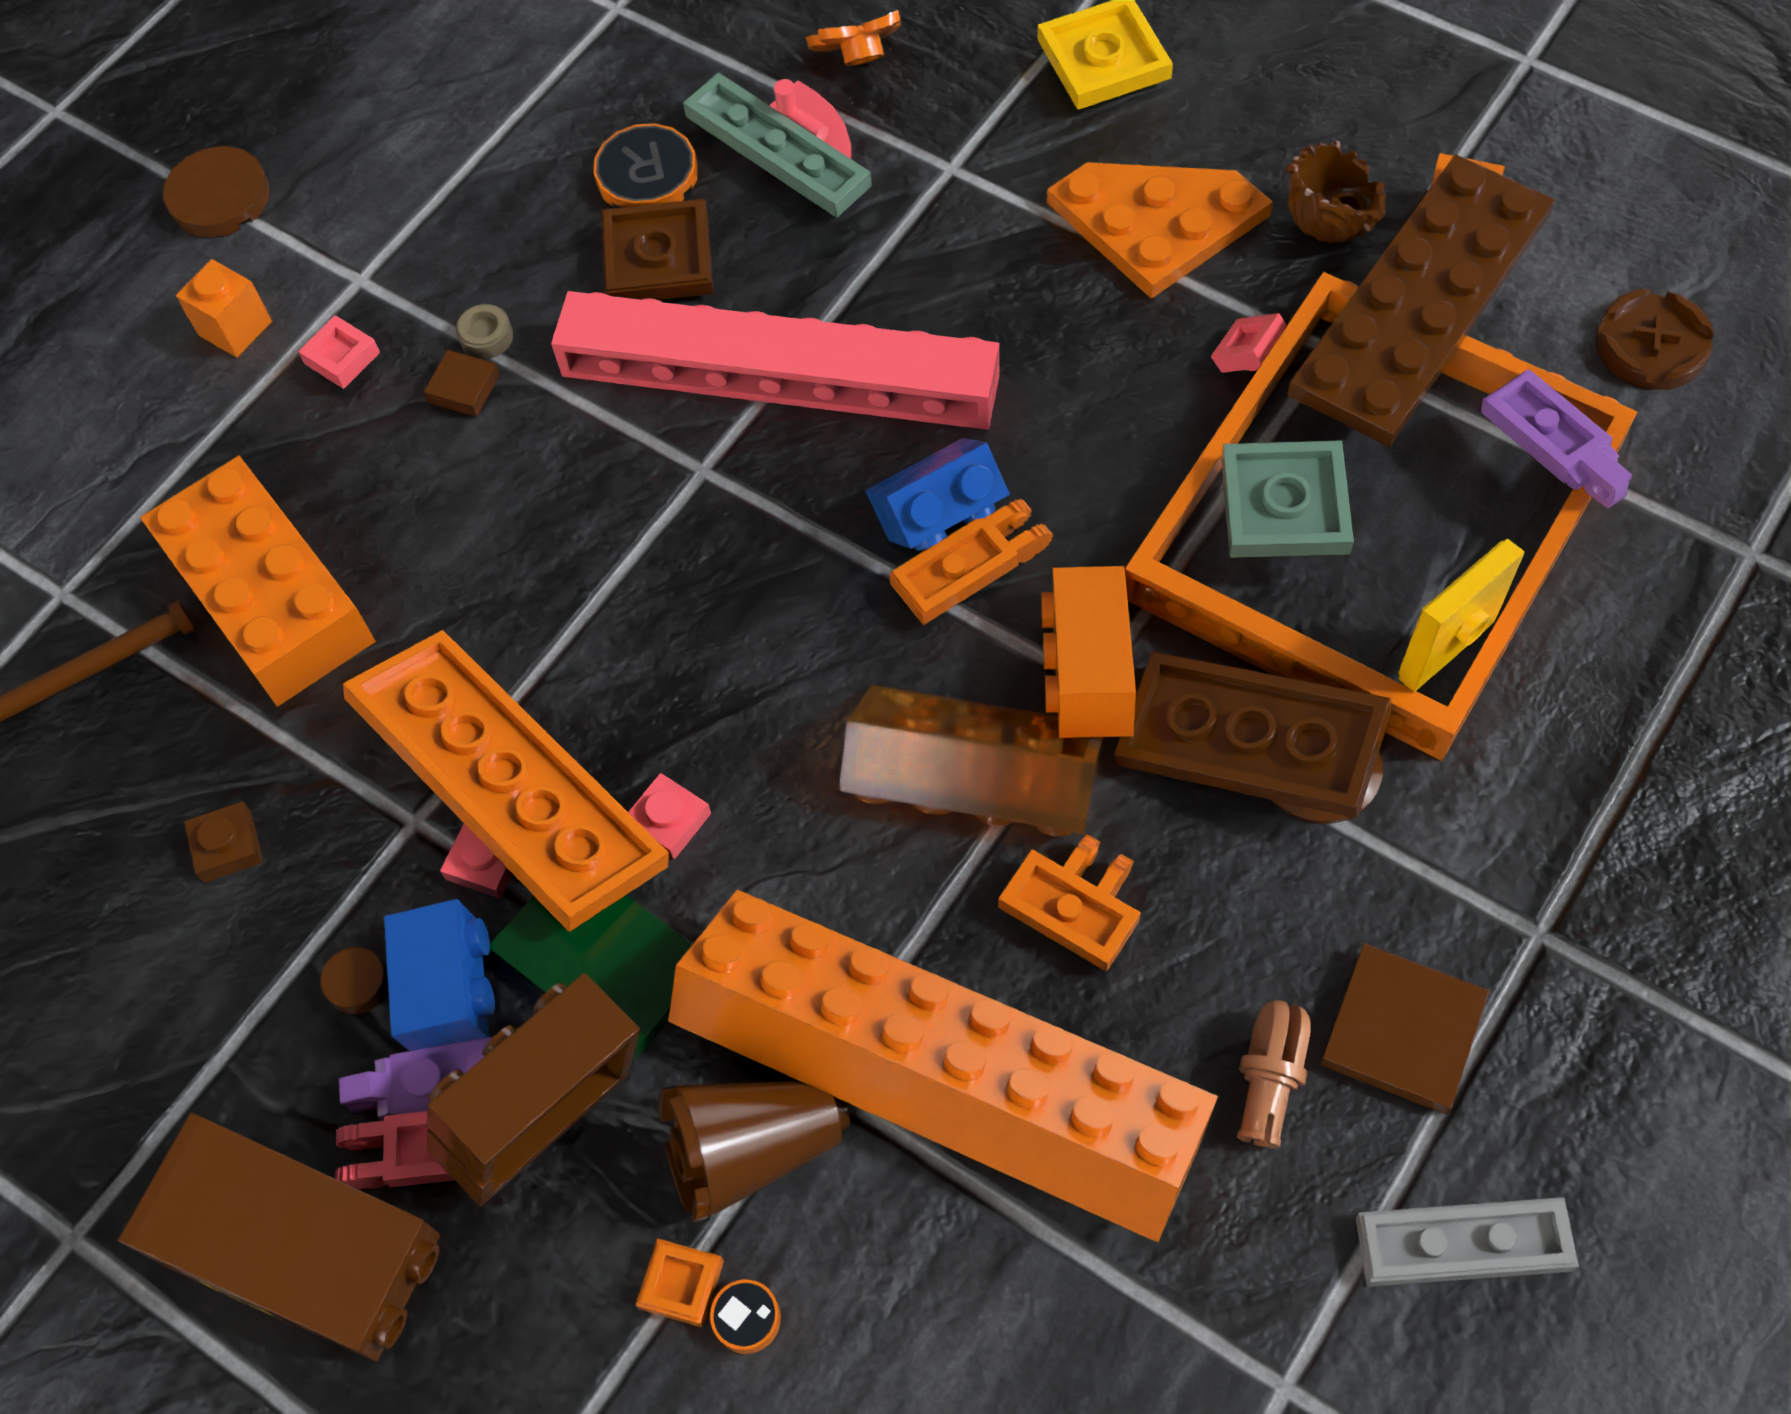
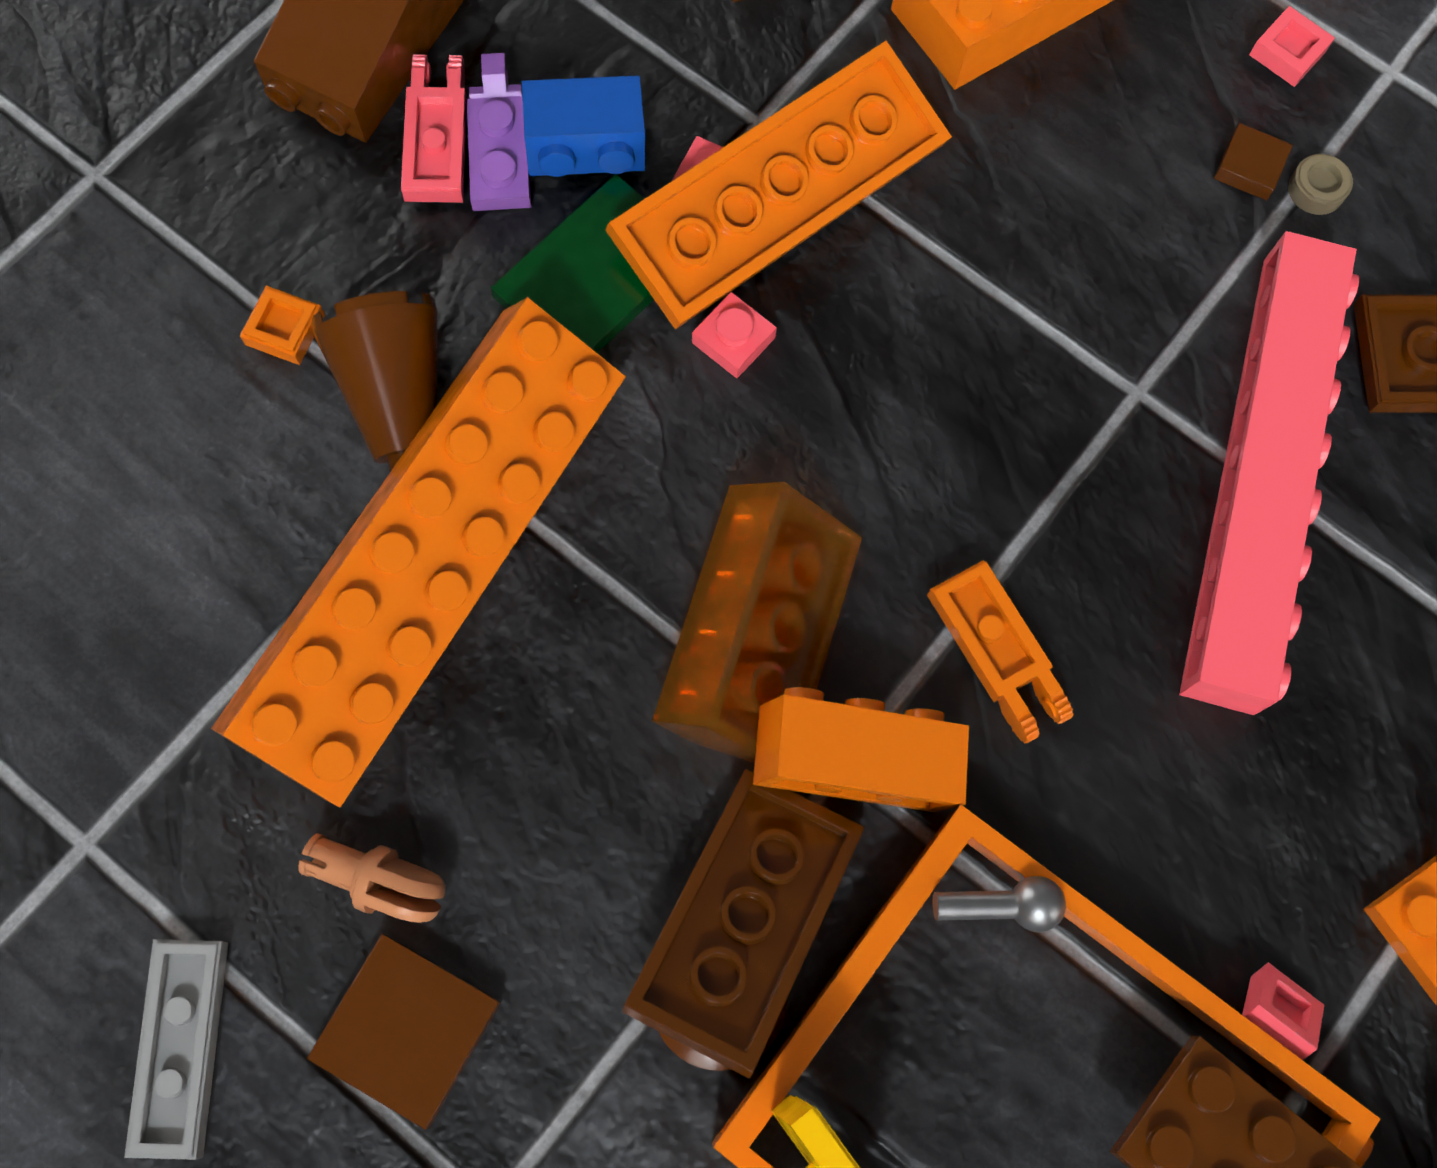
camera: 85 degrees right, 10 degrees up
(354, 980) = (602, 60): reddish brown tile -> none
(529, 1087) = (445, 180): reddish brown piece -> none
(745, 1316) = (241, 375): tile -> none
(938, 493) = (1077, 615): blue brick -> none
(1070, 908) = (580, 702): orange hinge -> none
(1202, 508) = (1033, 903): none -> flat silver bar
(1286, 499) = (1035, 1003): sand green plate -> none

